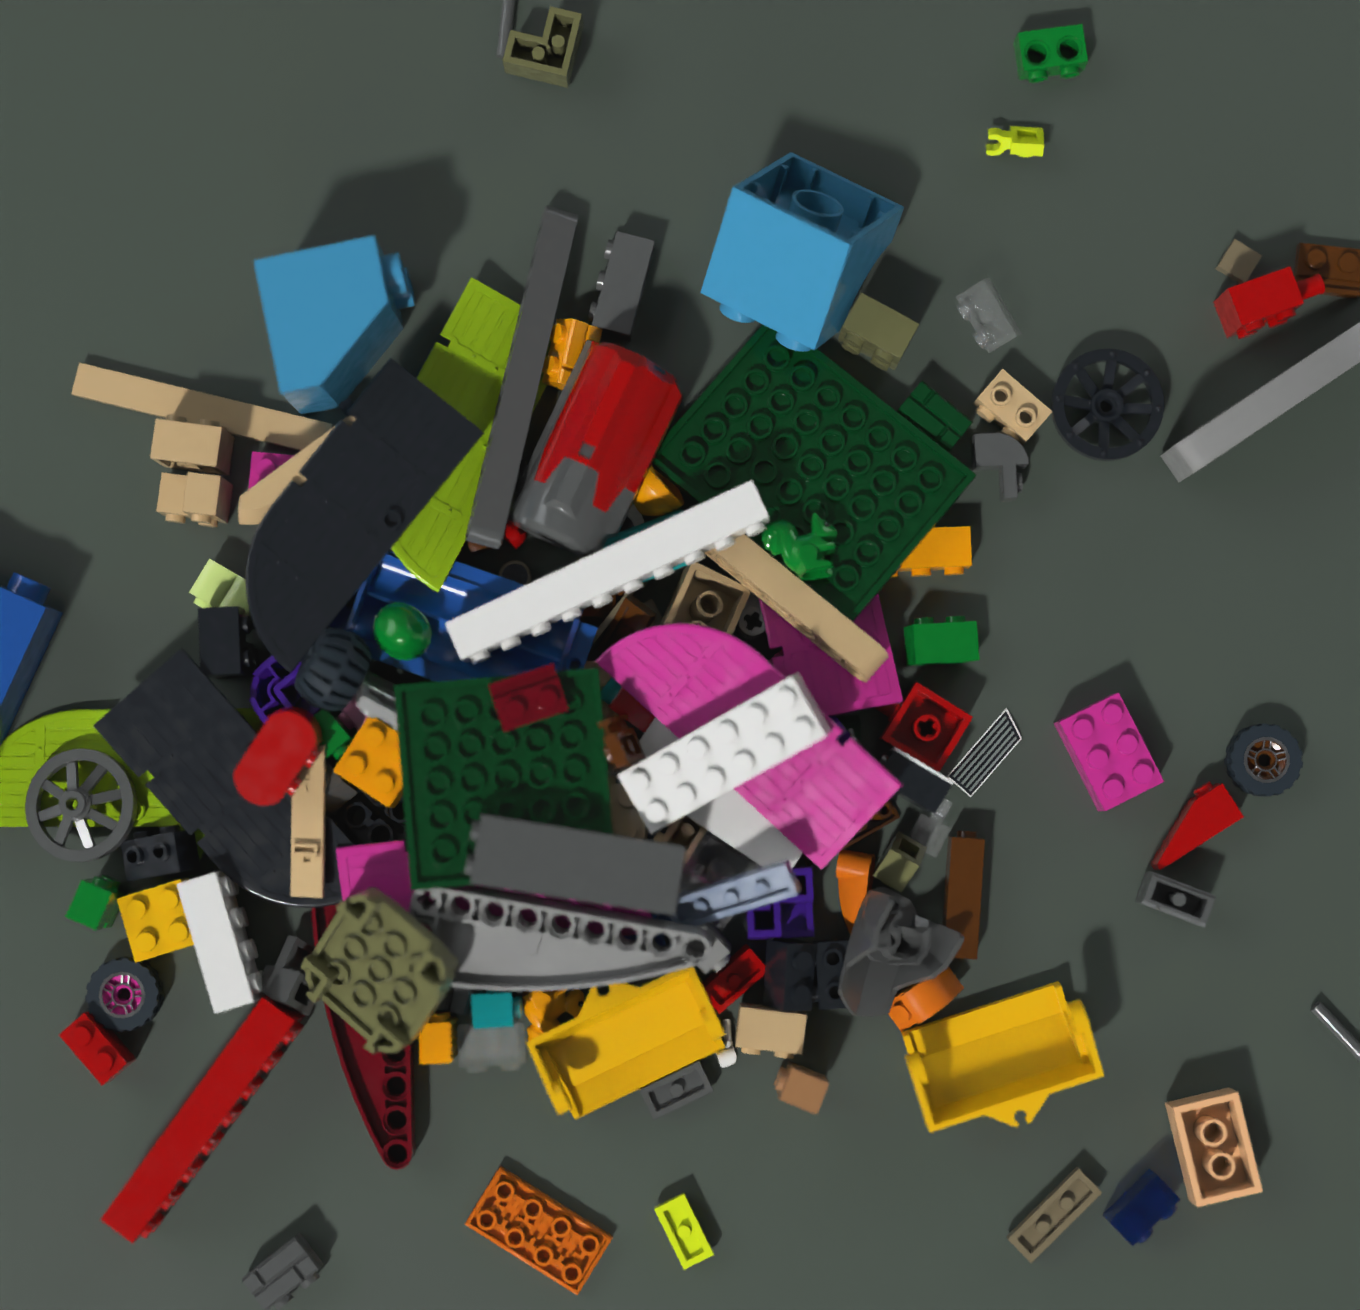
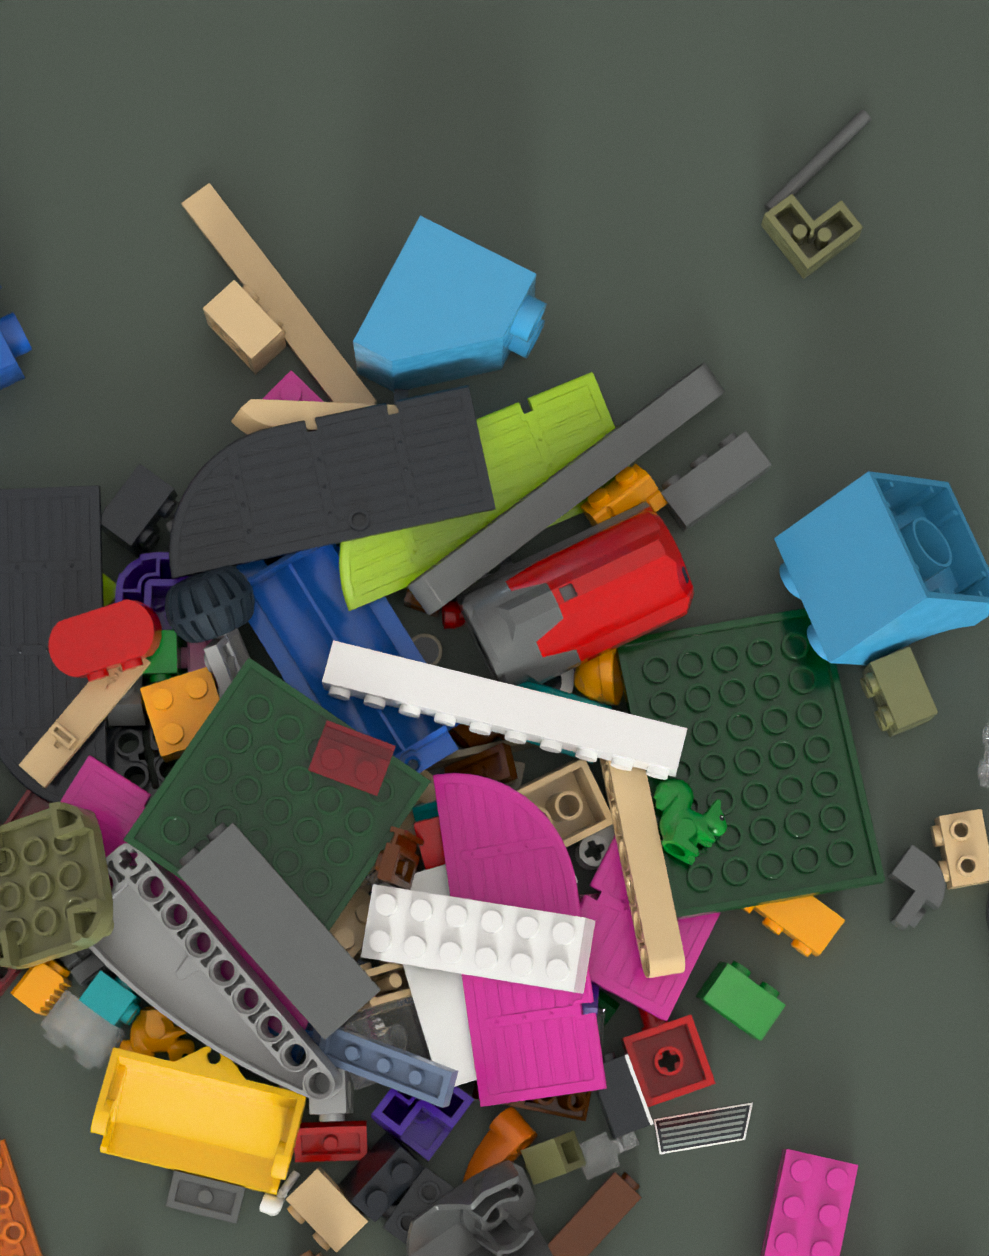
camera: 35 degrees right, 5 degrees down
(194, 497) = (213, 370): tan brick -> none
(219, 588) = (171, 461): yellowish green brick -> none
(402, 631) = (292, 619): green hat -> none
(935, 416) = (890, 803): dark green brick -> none

